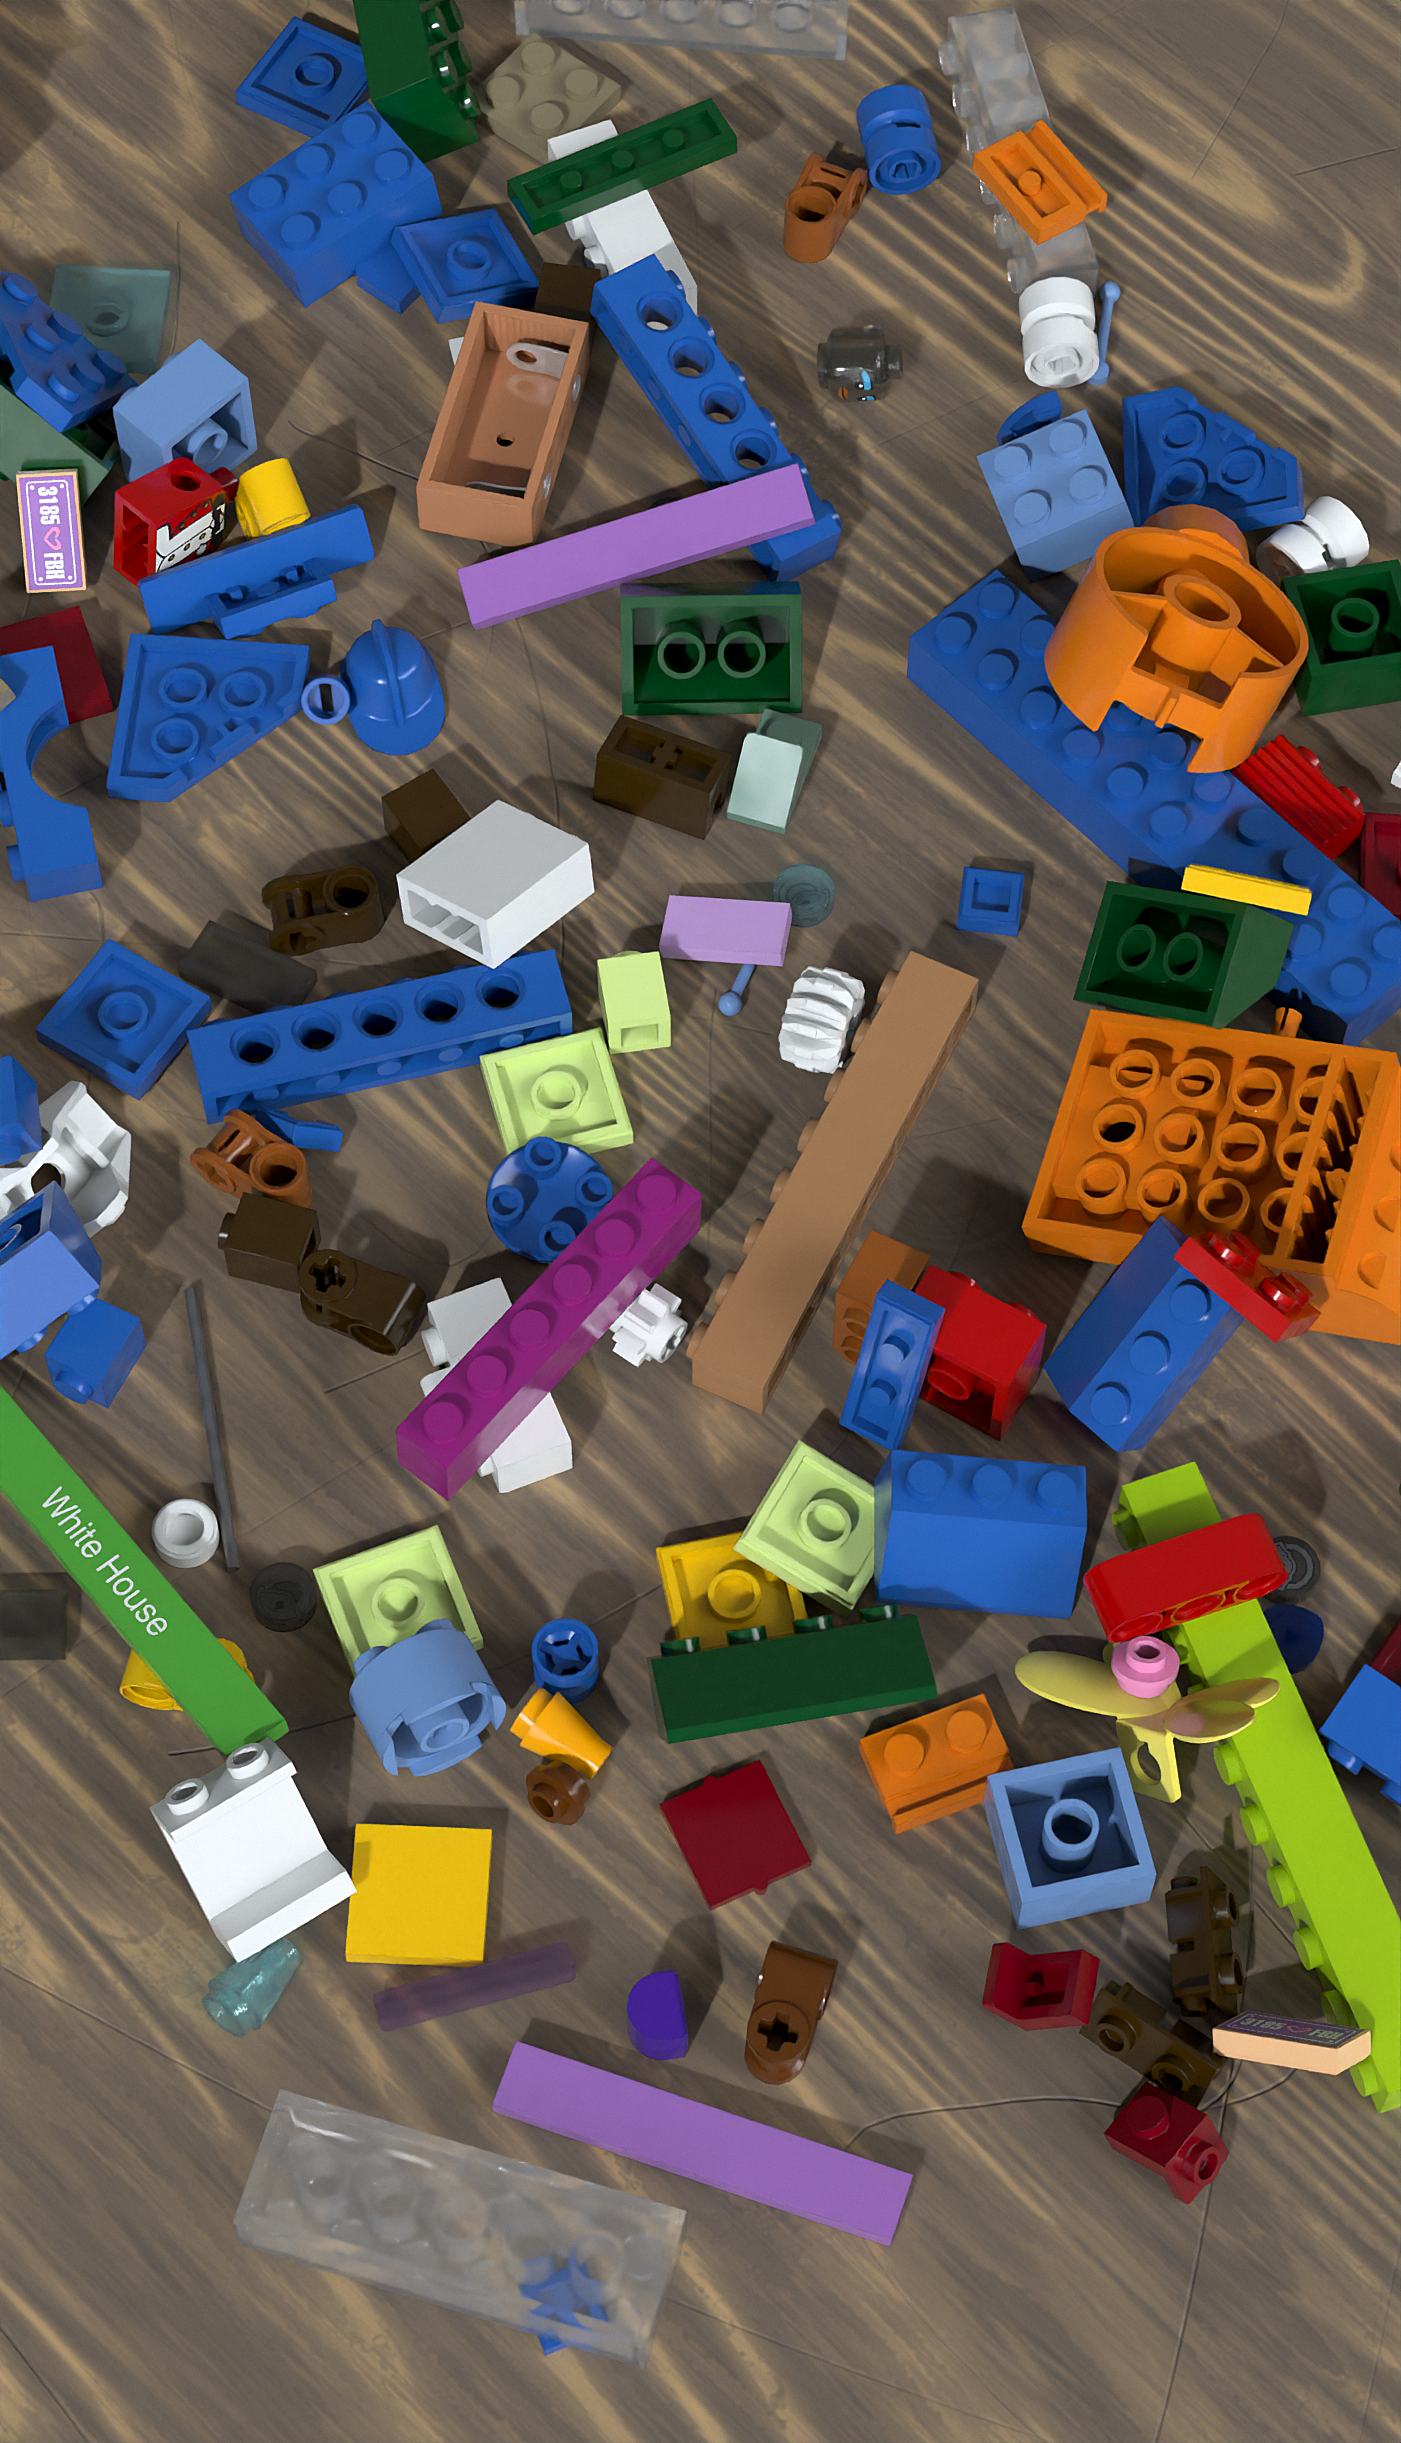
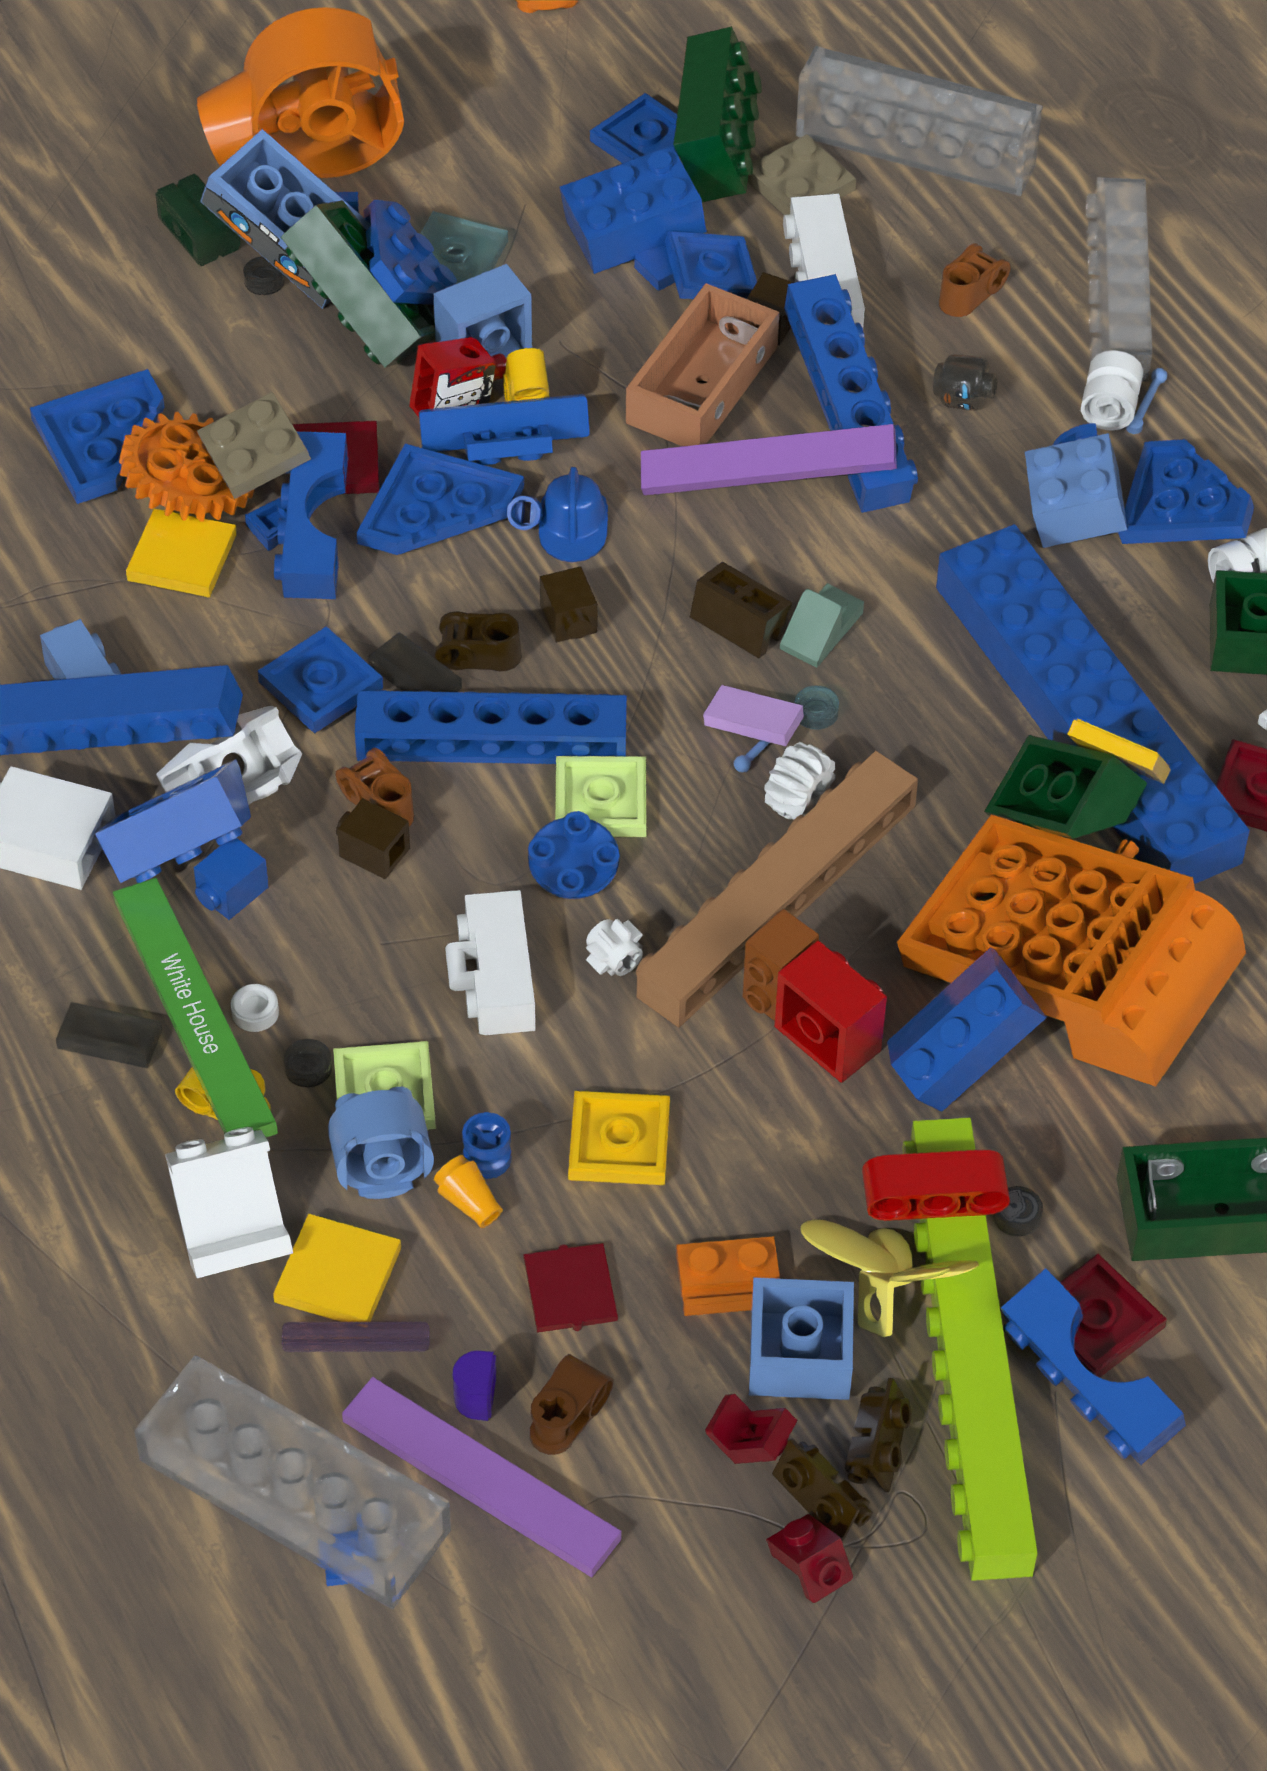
camera: 15 degrees right, 10 degrees down
(52, 530) = (372, 368): medium lavender tile -> none
(211, 1429) = (294, 949): flat silver piece -> none
(249, 1989) = (202, 1297): clear light blue cone -> none
(301, 1133) = (418, 774): blue tile -> none
(362, 1301) = (420, 887): dark brown piece -> none
(495, 883) = (600, 646): white brick -> none
(548, 1329) = (540, 924): magenta brick -> none
(557, 1792) = (453, 1227): reddish brown plate -> none
(622, 166) = (835, 221): dark green plate -> none
(634, 1002) = (673, 745): yellowish green brick -> none
(711, 648) = (801, 536): dark green slope -> none
(789, 1676) = (636, 1187): dark green slope -> none
(815, 1529) = (694, 1104): yellowish green tile -> none
(891, 1365) = (772, 1002): blue tile -> none
(898, 139) = (1038, 248): blue wheel -> none
(978, 1533) = (802, 1130): blue slope -> none
(990, 901) = (947, 739): blue tile -> none
(1039, 182) = (1125, 288): orange plate -> none
(1145, 1666) = (891, 1240): bright pink plate -> none
(1179, 635) = (1126, 585): orange animal -> none
(1232, 1270) = (1030, 990): red plate -> none
(1291, 2042) = (917, 1507): light nougat tile -> none
(1297, 1634) = (1010, 1255): clear blue piece -> none
(1299, 792) = (1191, 717): red brick -> none

